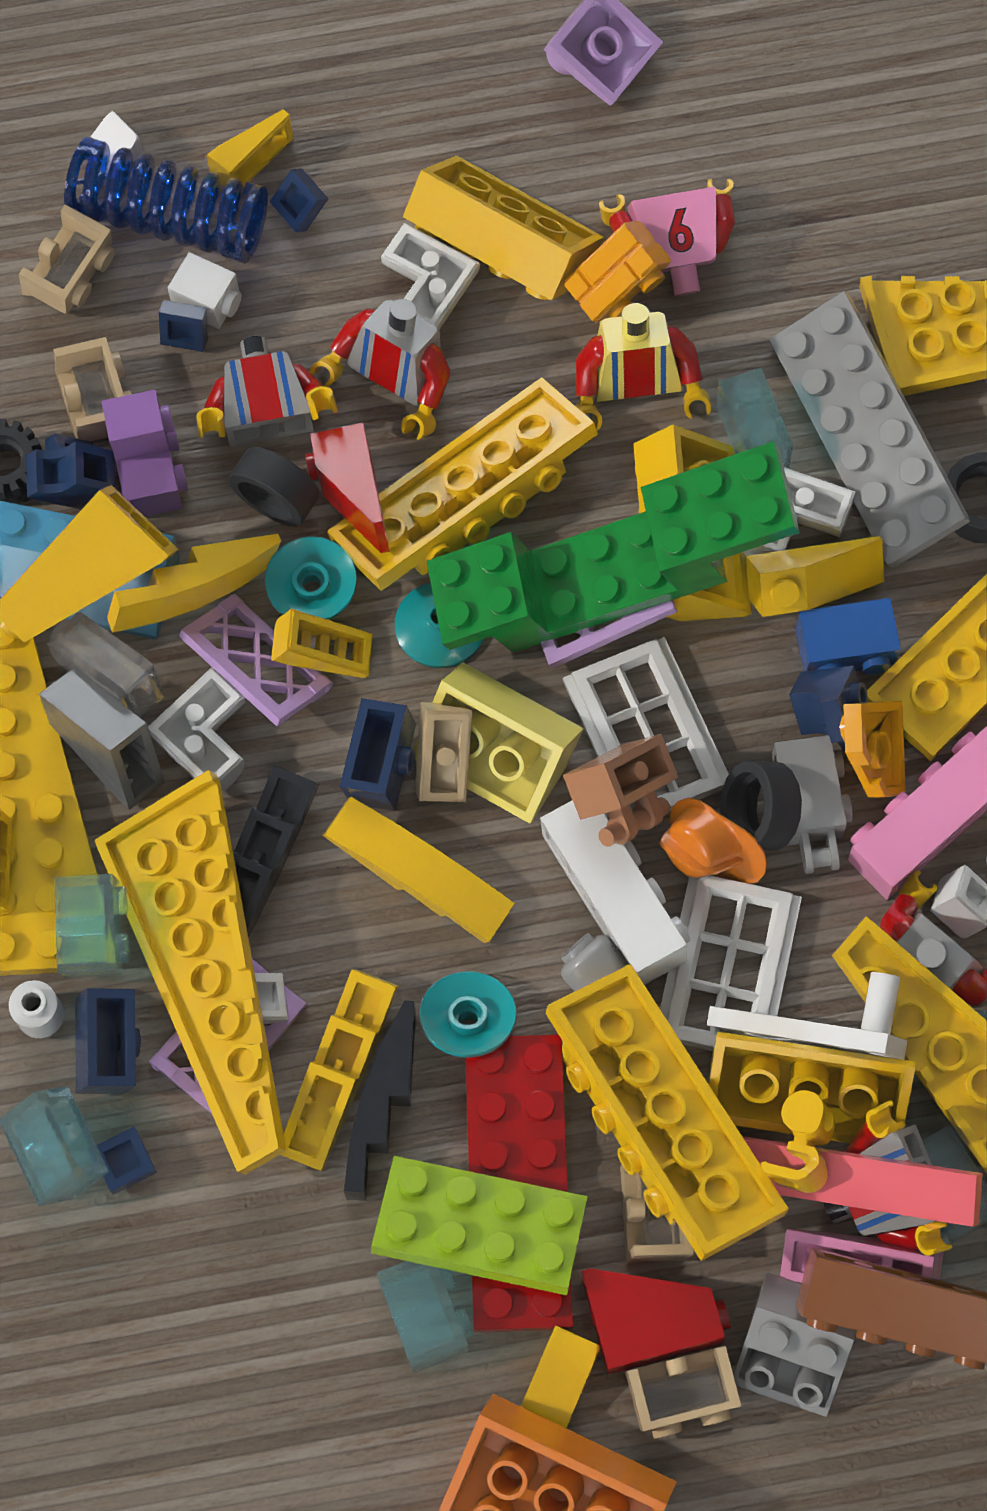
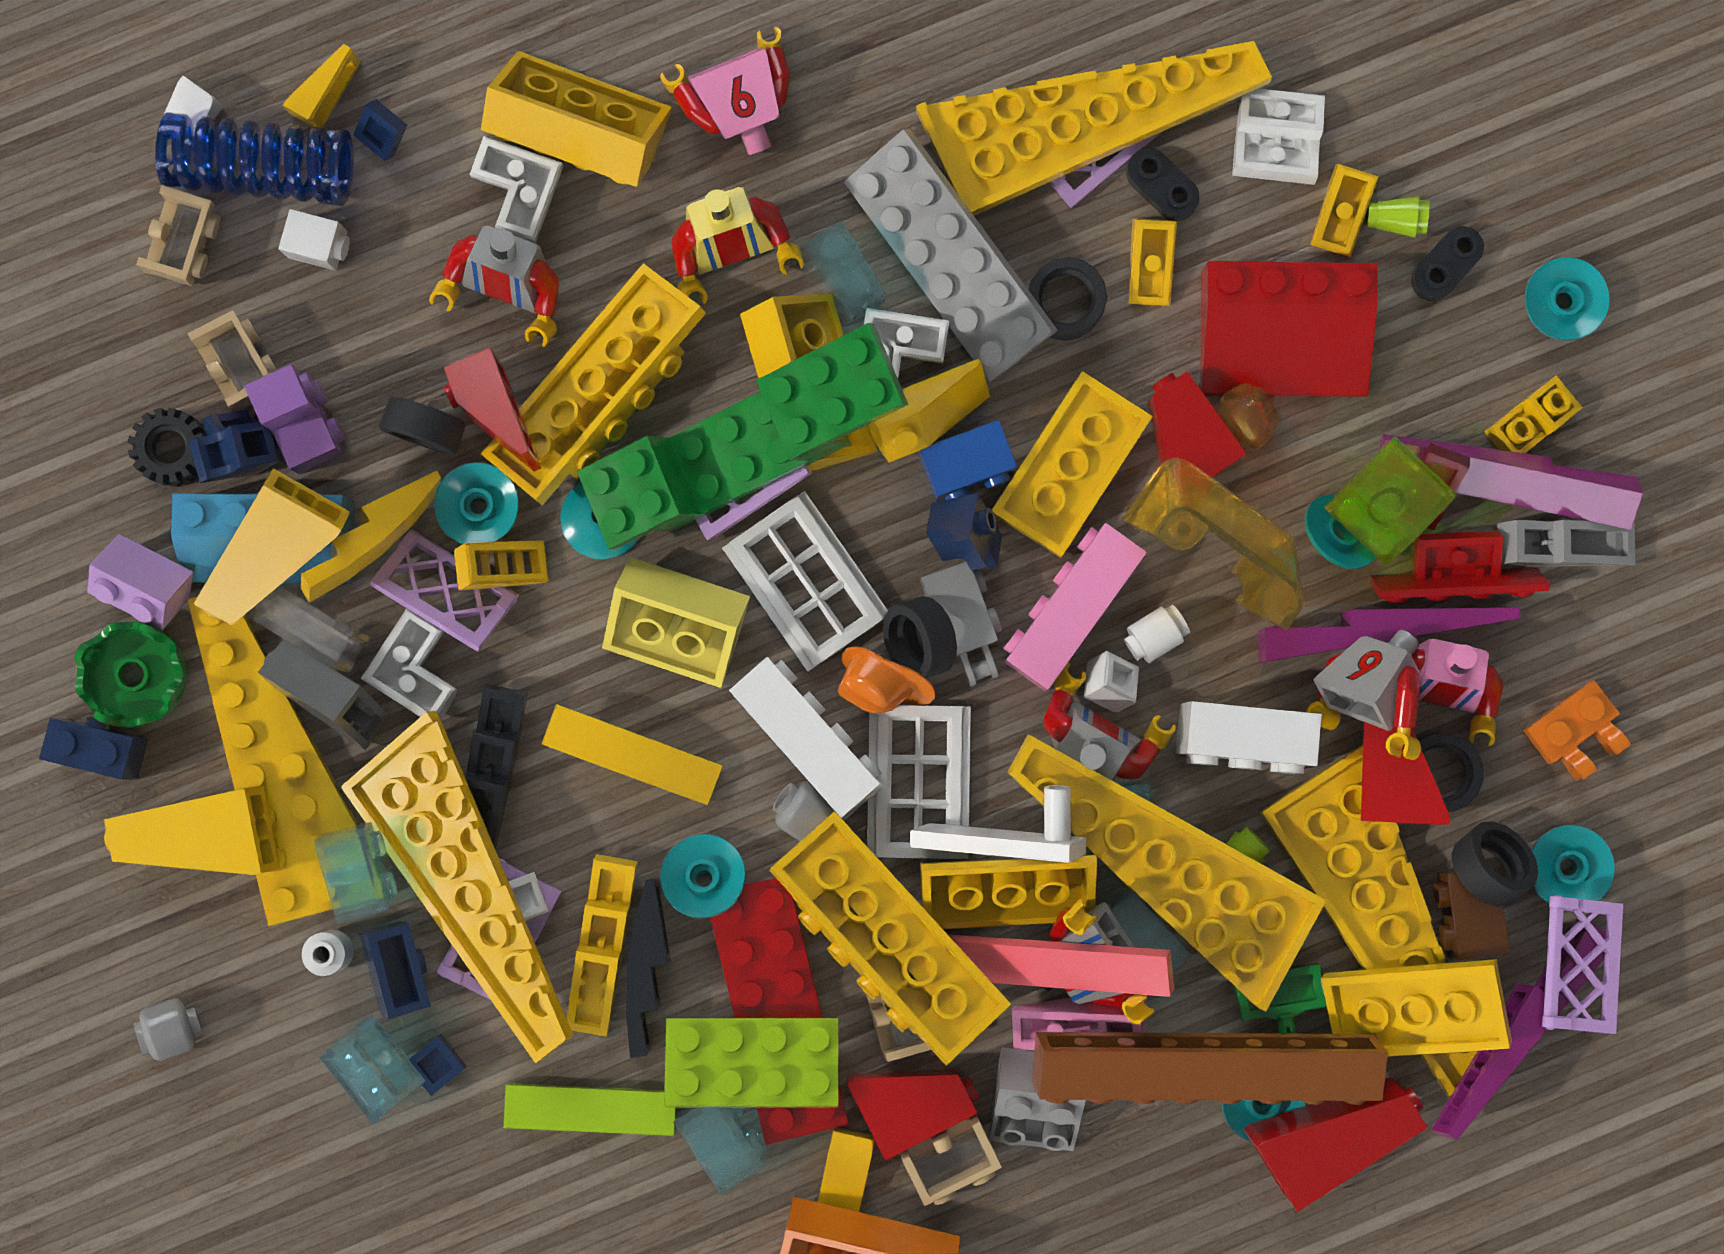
camera: 15 degrees left, 15 degrees up
(183, 325) = (302, 279): dark blue plate -> none
(263, 397) = (391, 336): torso -> none
(283, 1249) = (587, 1109): none -> lime tile
(379, 754) = (574, 659): dark blue brick -> none
(442, 753) = (630, 646): tan slope -> none
(618, 272) = (692, 149): light orange brick -> none
(620, 778) = (796, 651): nougat brick -> none
(811, 1126) = (1014, 924): yellow leg -> none
(876, 745) = (1011, 563): light orange plate -> none

